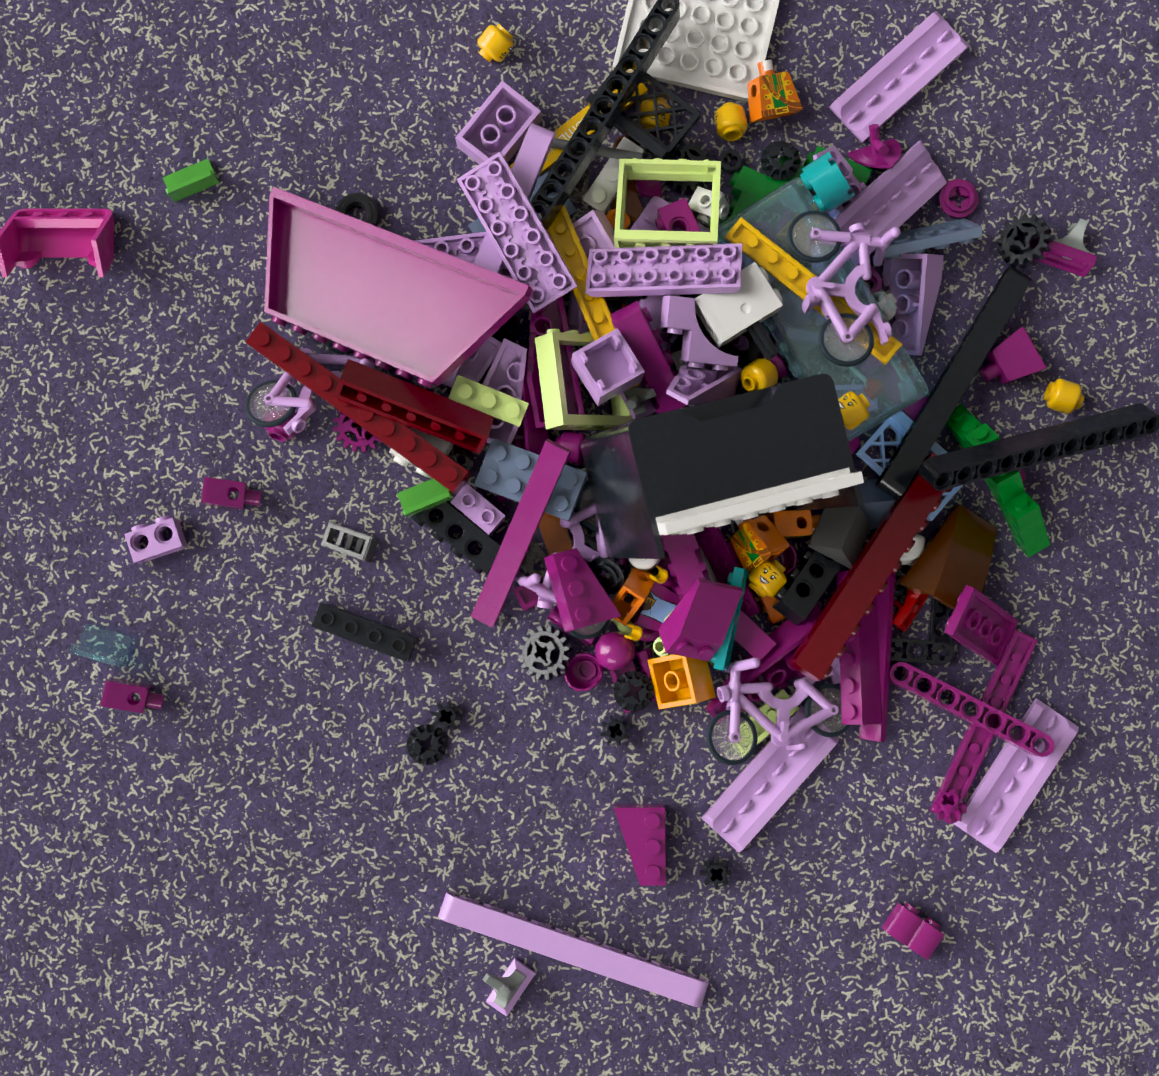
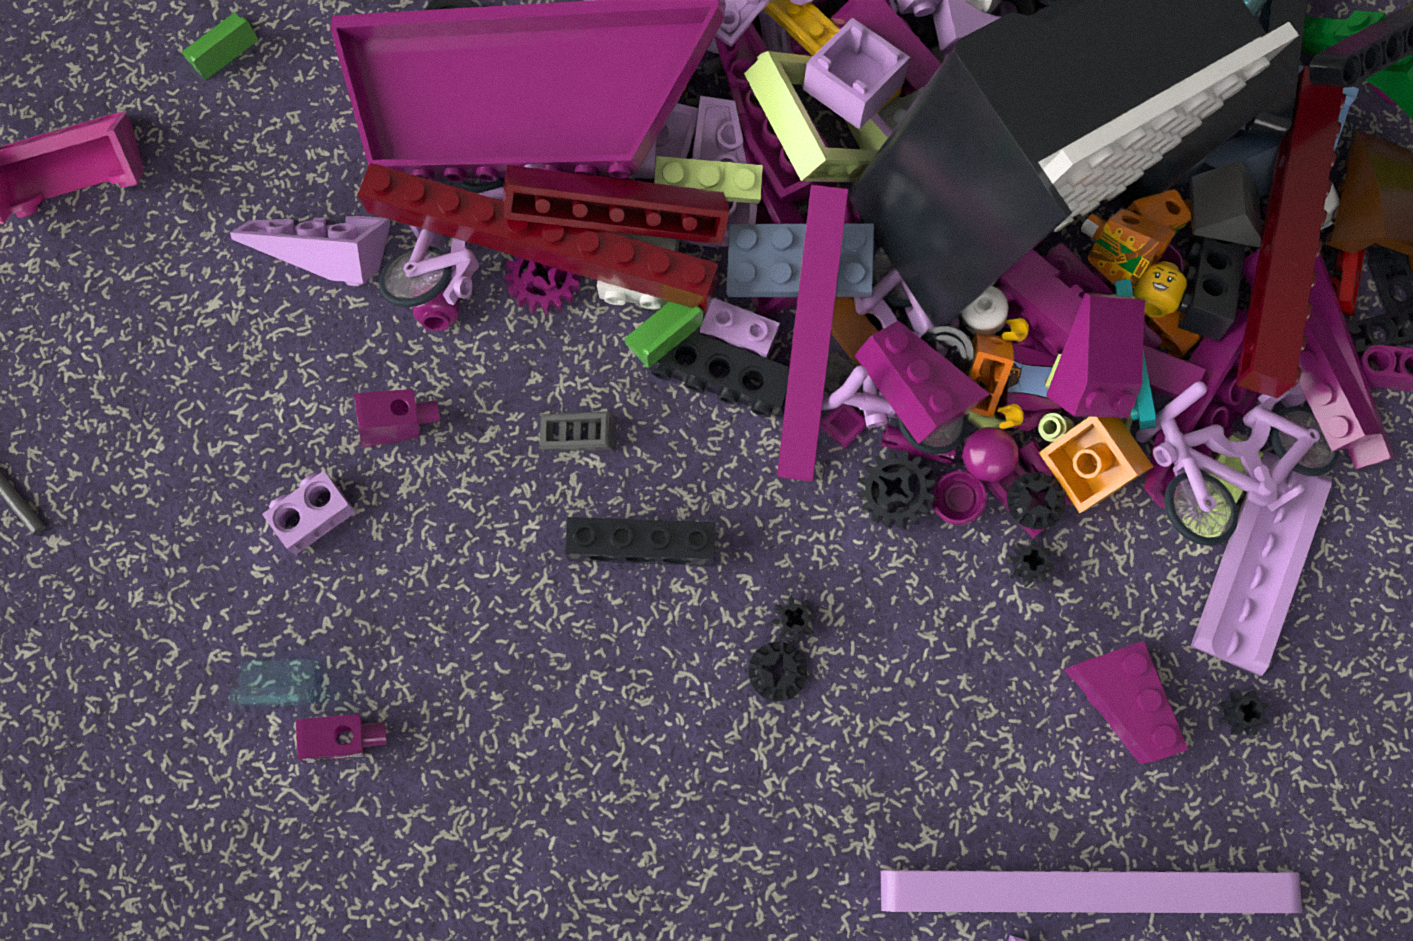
camera: 15 degrees left, 10 degrees down
(224, 360) = (336, 252): none -> lavender wedge

